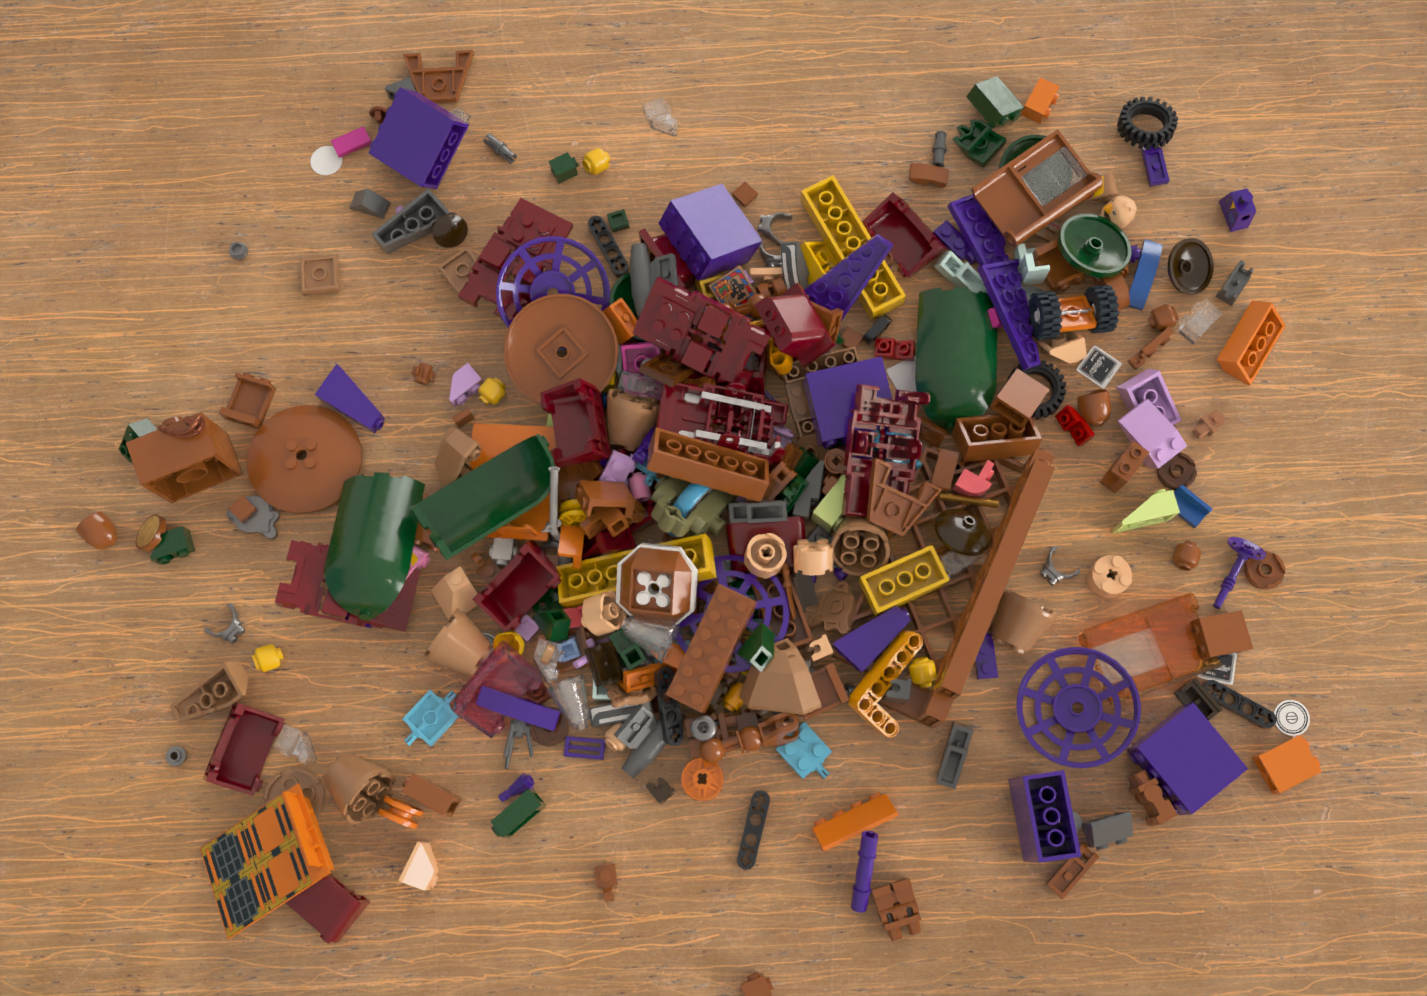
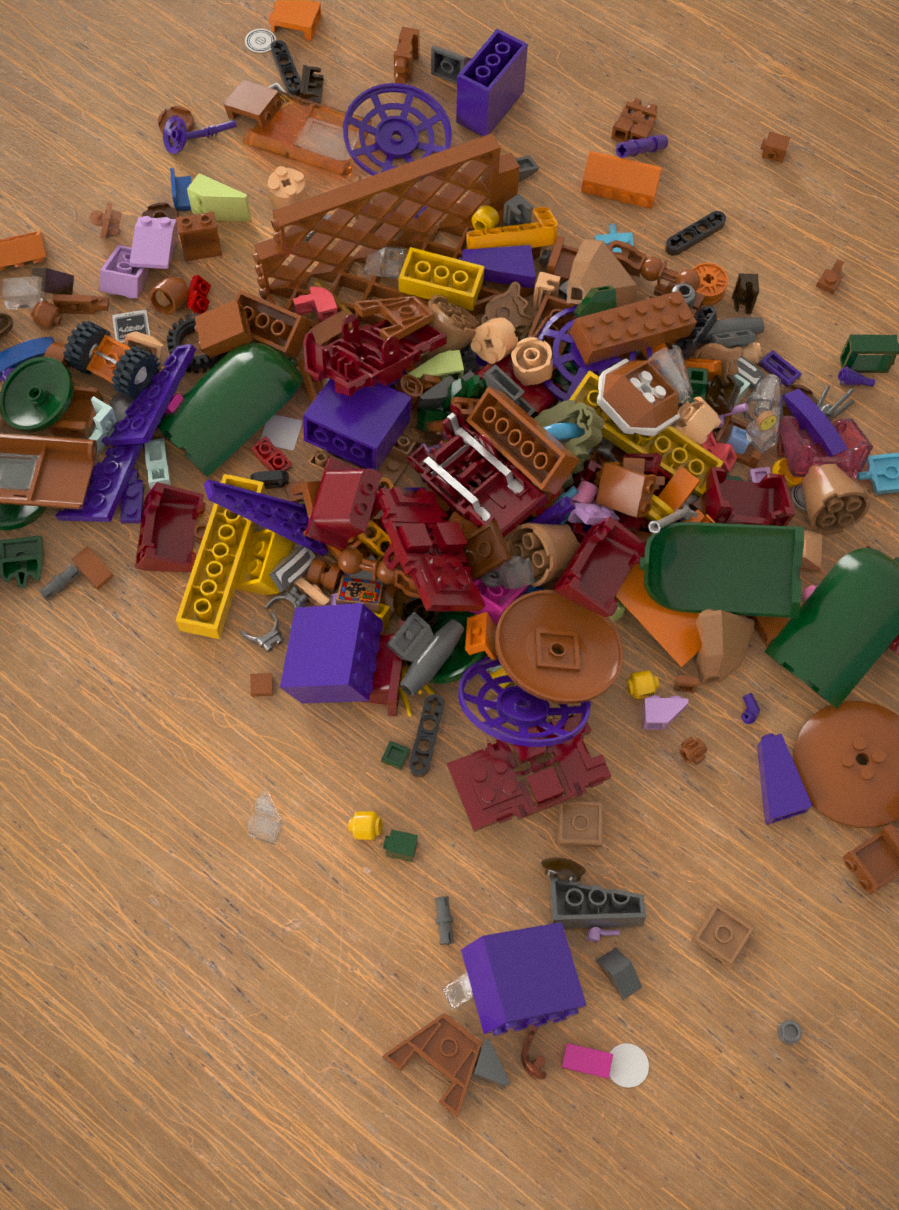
camera: 145 degrees left, 10 degrees down
(405, 438) = (752, 710): none -> dark purple arm
(553, 624) = (739, 457): dark green slope -> none
(747, 718) = (644, 288): reddish brown brick -> none
(963, 532) = (365, 274): dark brown dish -> none
(1185, 342) = (54, 281): none -> dark brown panel
(1186, 556) = (219, 162): dark orange head -> none
(1187, 759) = (358, 56): dark purple brick -> none

